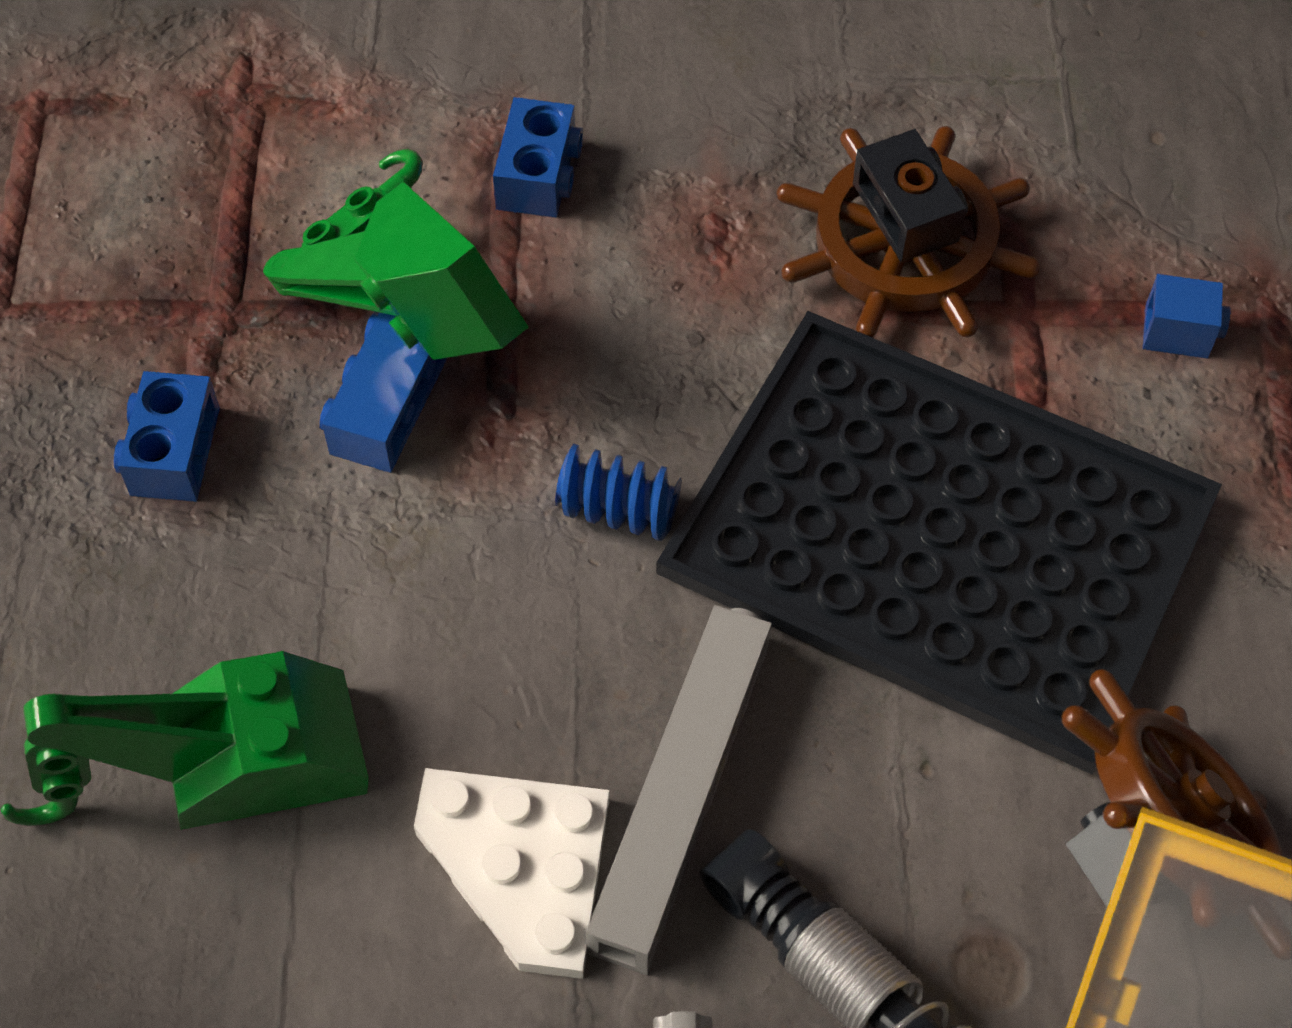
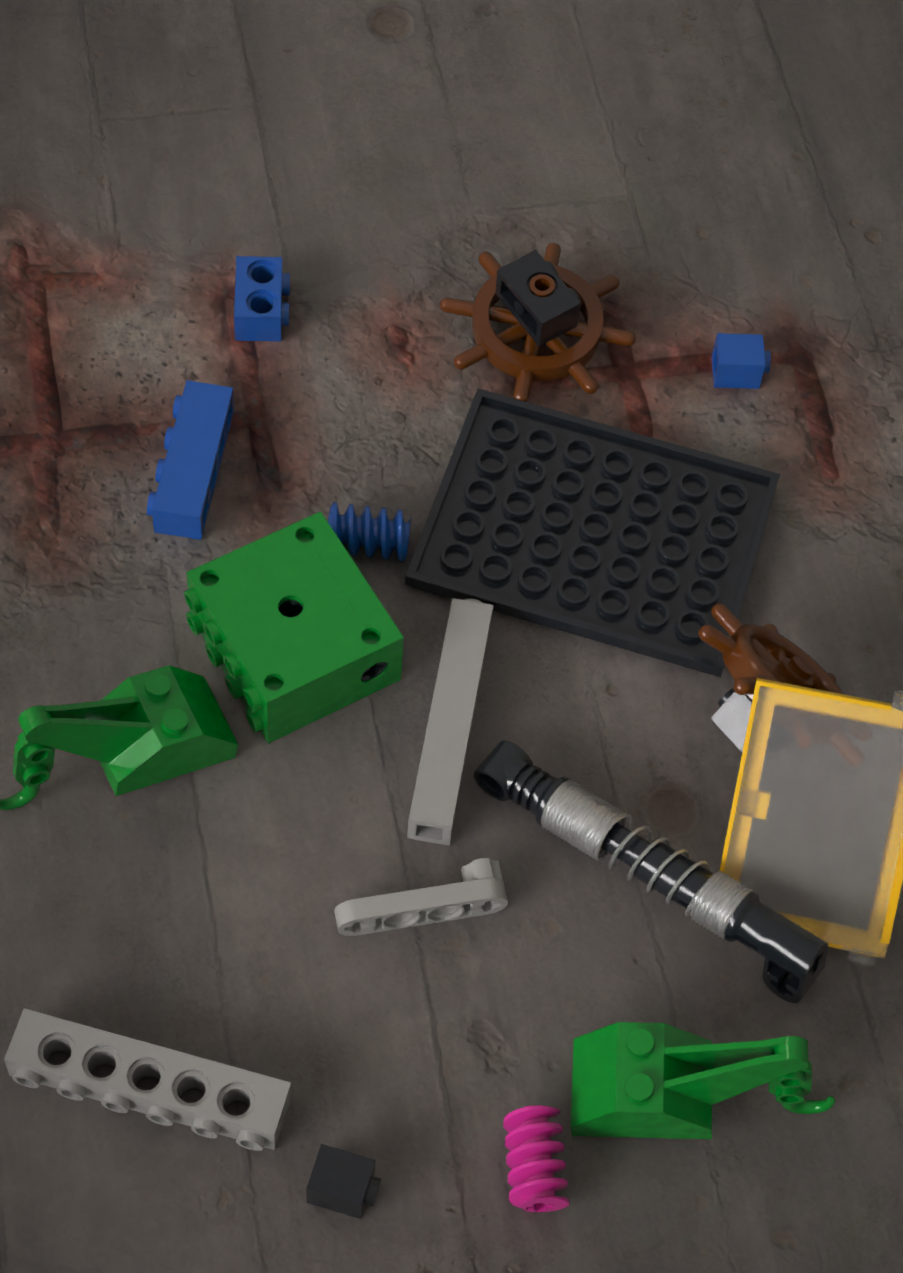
camera: 15 degrees left, 0 degrees up
(178, 436) = (40, 532): blue brick -> none
(401, 260) = (194, 389): green slope -> none
(479, 617) = (293, 627): none -> green gear
(520, 860) = (350, 784): white plate -> none

